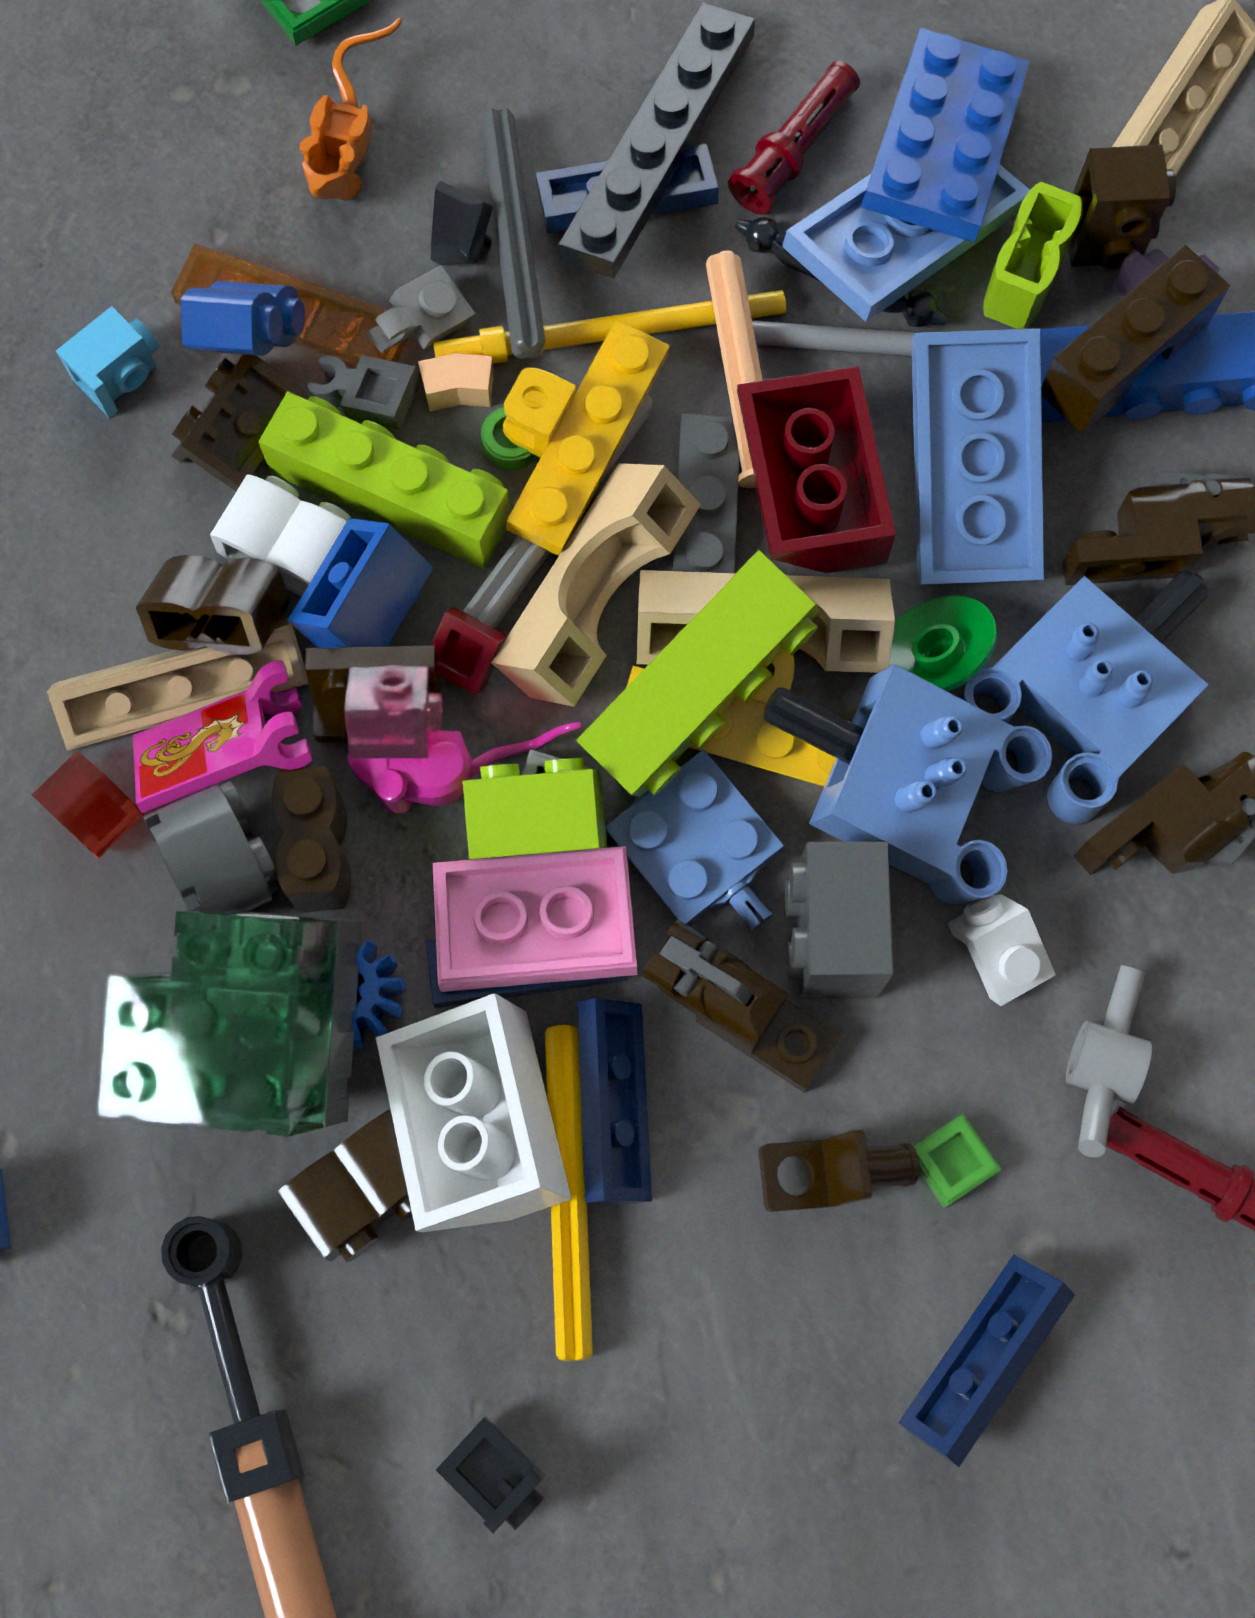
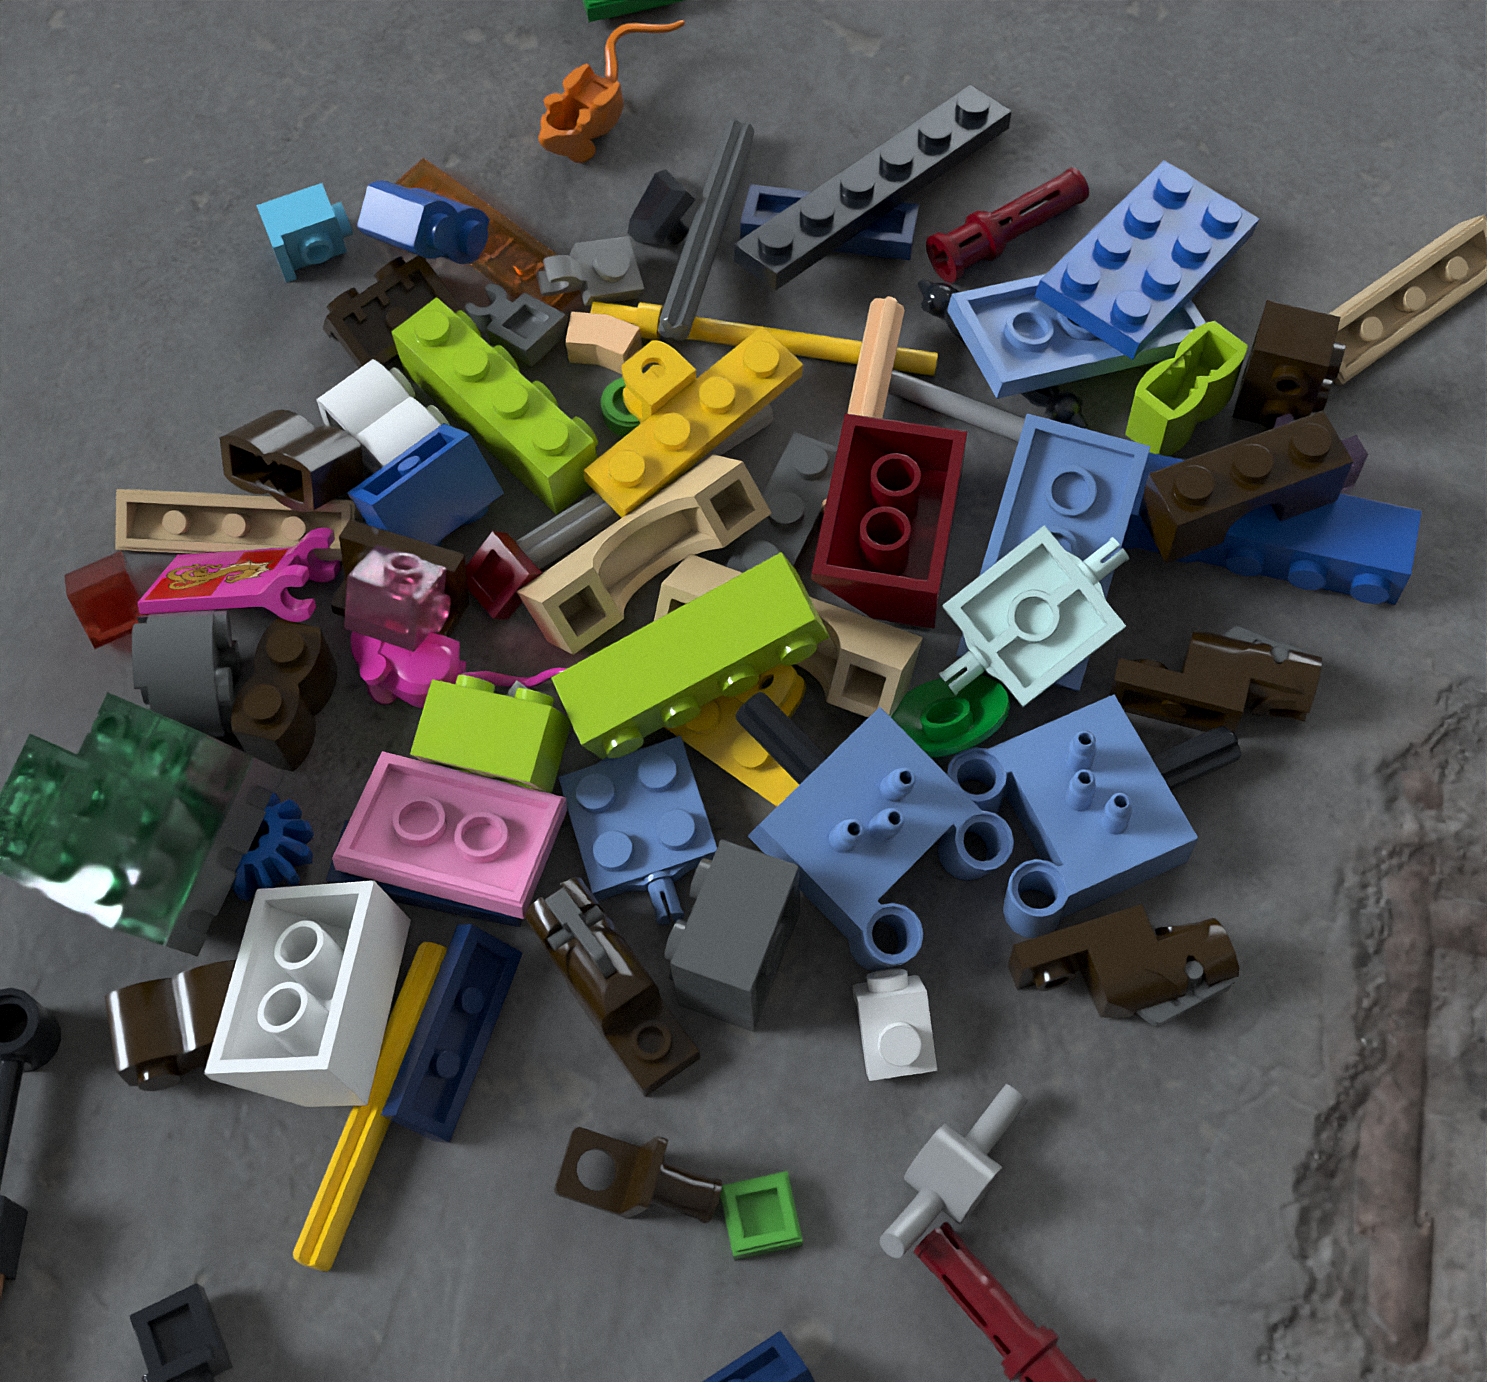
camera: 25 degrees right, 10 degrees down
(987, 526) = (1034, 616): none -> light aqua plate

